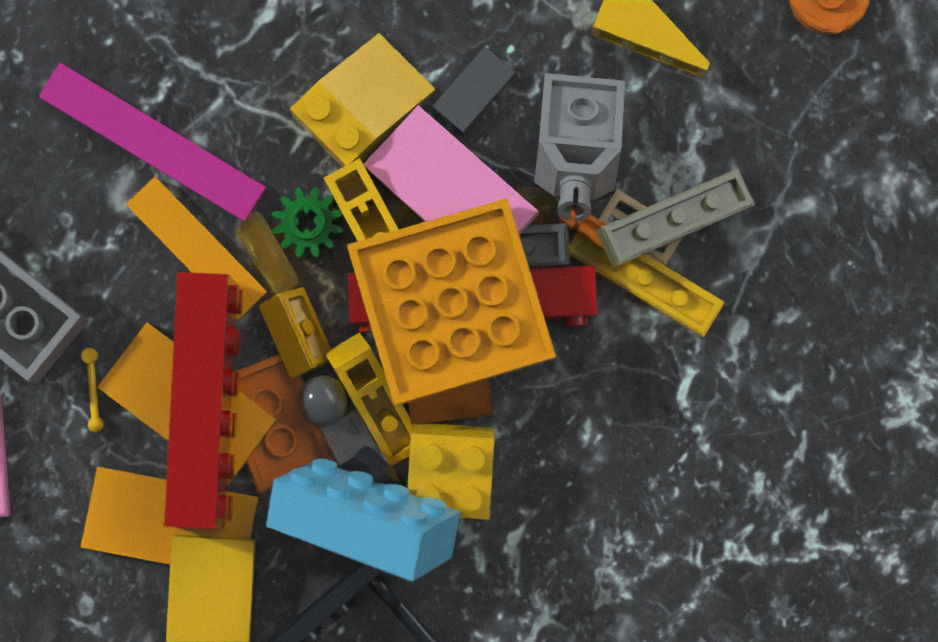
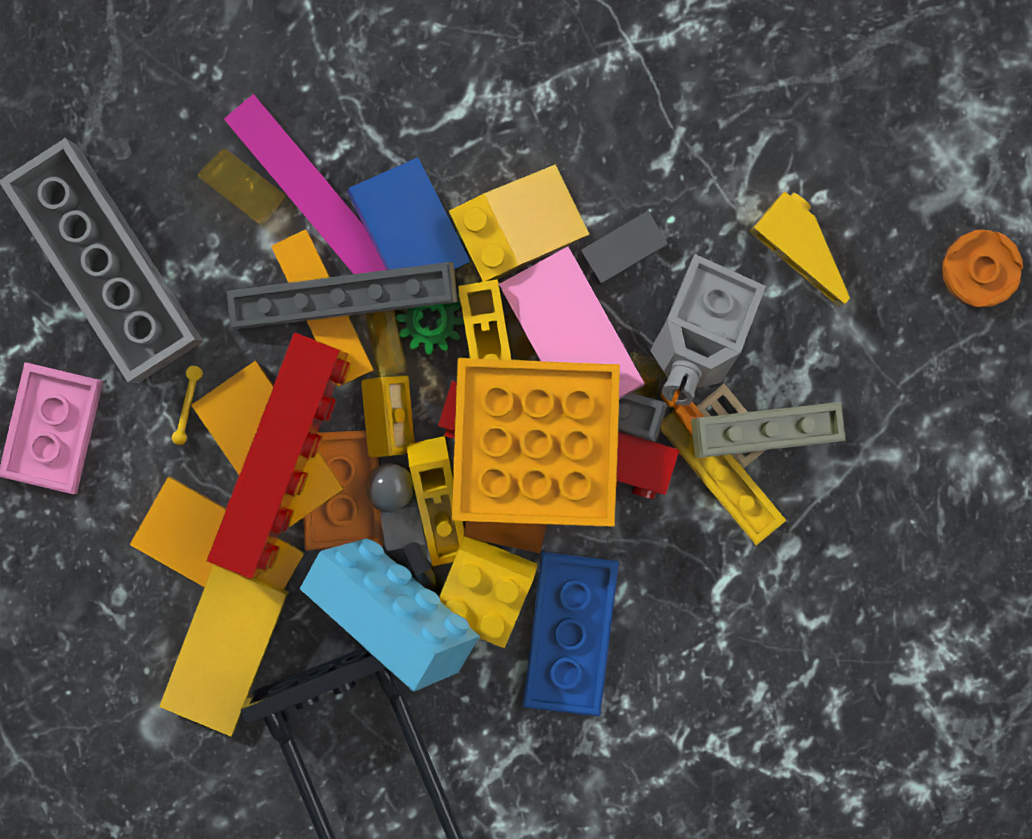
camera: 25 degrees right, 5 degrees up
(78, 156) = (242, 186): none -> clear yellow slope
(212, 227) = (342, 296): none -> dark grey tile
(255, 139) = (407, 219): none -> blue tile
(551, 487) = (570, 633): none -> blue tile

